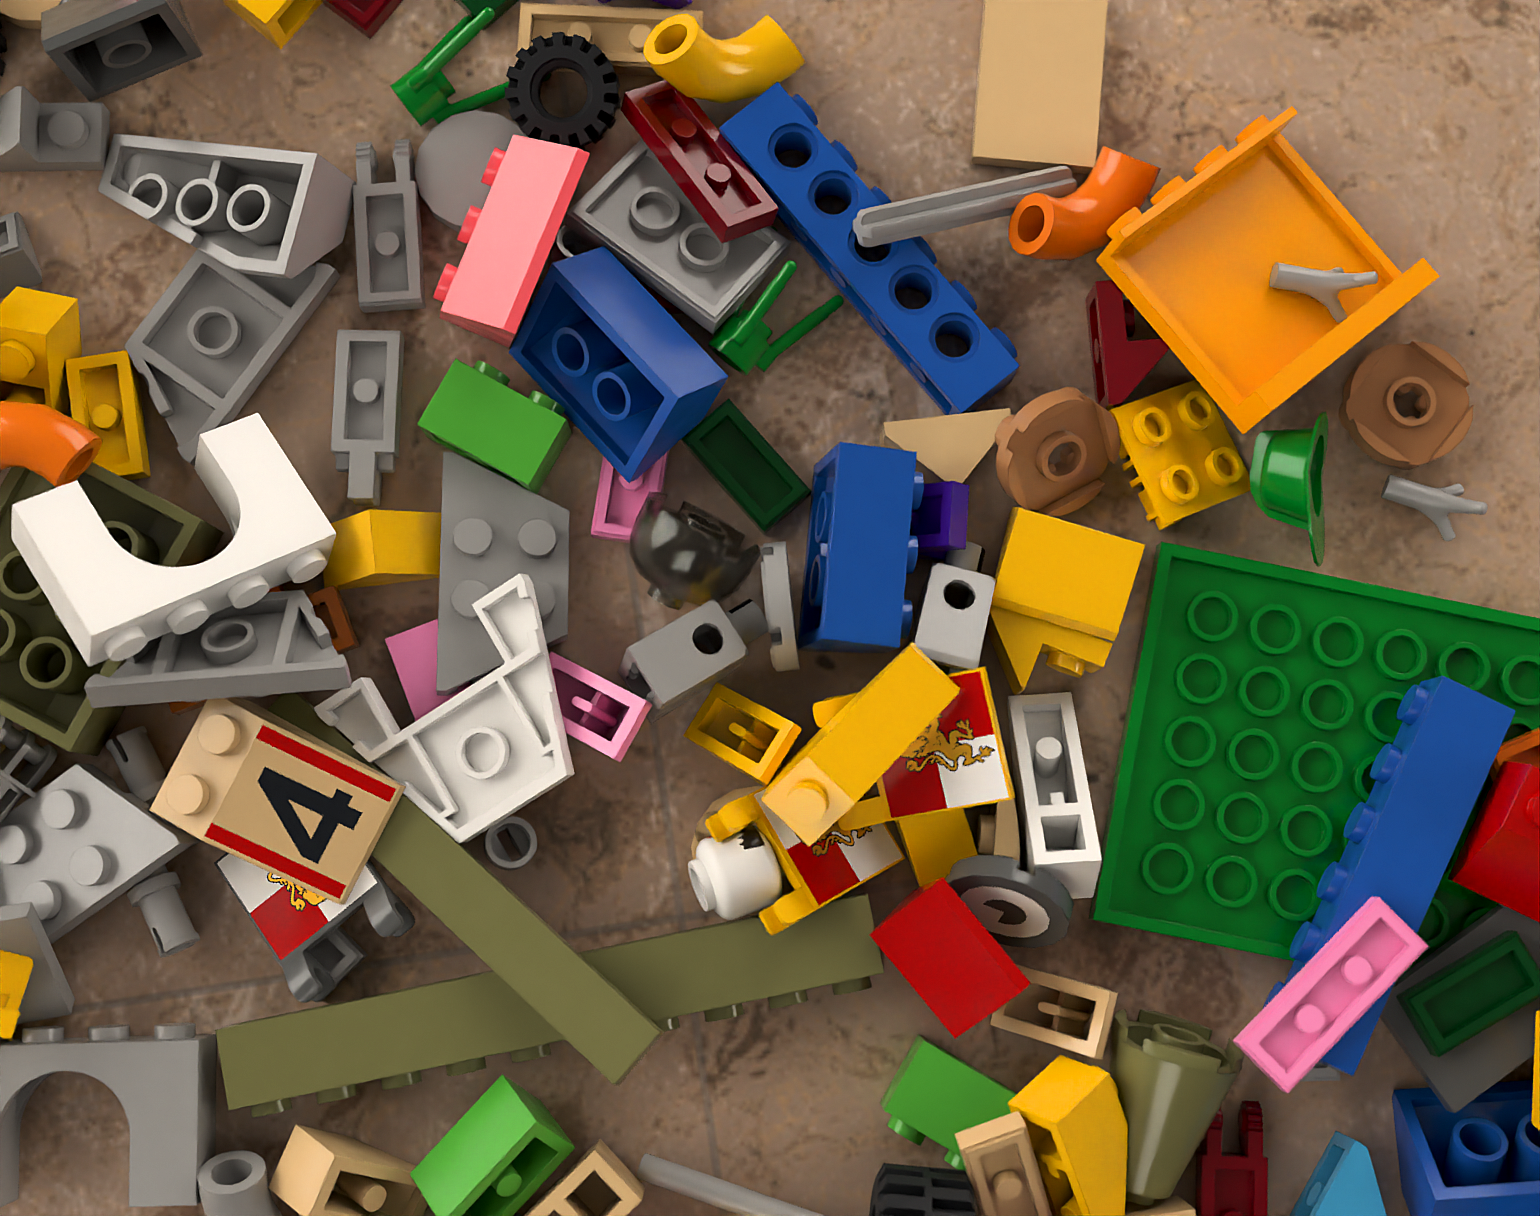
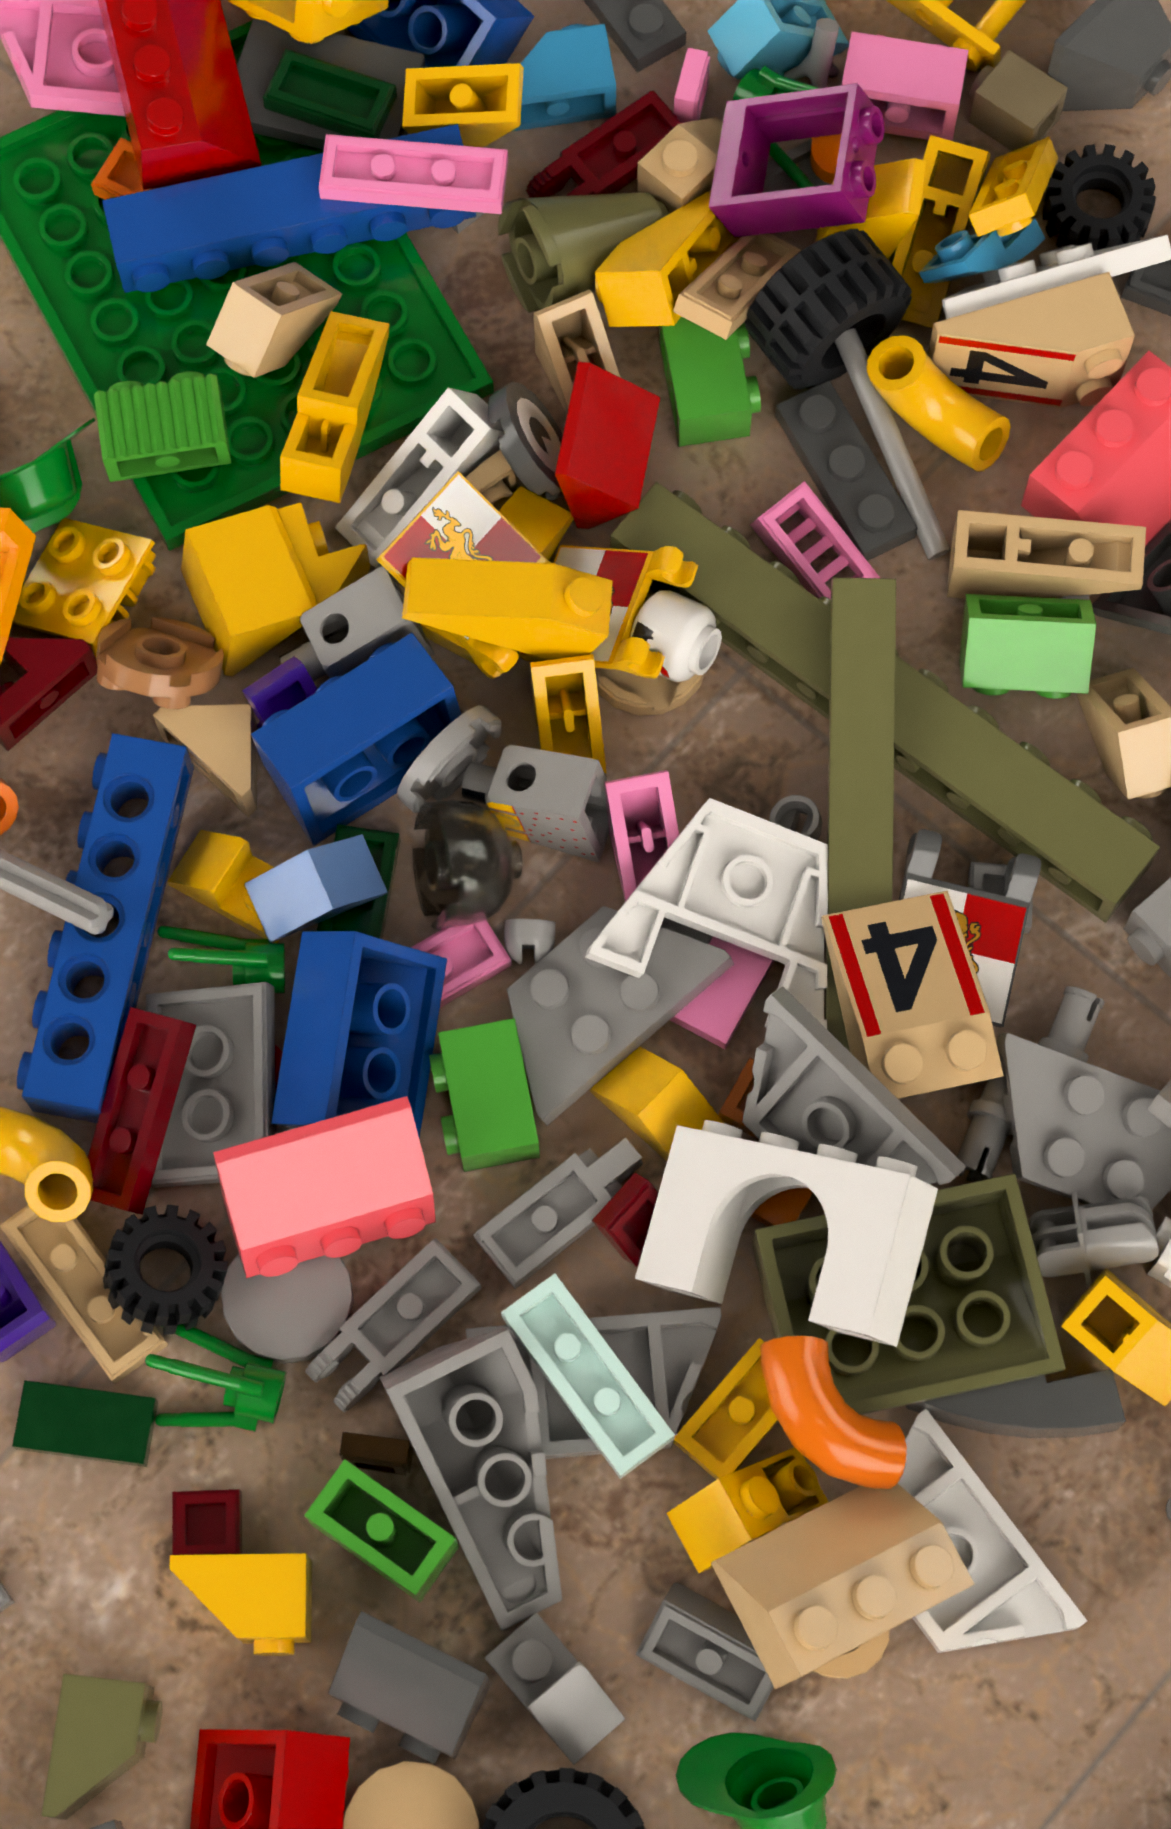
camera: 125 degrees left, 10 degrees down
(214, 317) = (587, 1375): none -> light aqua plate
(238, 90) = (382, 1530): none -> bright green brick
(306, 131) = (377, 1453): none -> dark brown tile
(312, 453) = (628, 1217): none -> dark red tile
(597, 562) = (528, 934): none -> light grey hinge
(761, 425) = (315, 887): none -> medium blue slope
(779, 1152) = (845, 470): none -> dark grey plate
(785, 1071) = (818, 518): none -> bright pink slope
(825, 381) = (215, 876): none -> yellow slope
(1171, 763) = (333, 407): none -> yellow slope
(1262, 607) = (162, 426): none -> bright green brick
(1294, 775) = (270, 318): none -> tan slope
(1376, 1104) = (476, 97): none -> yellow slope

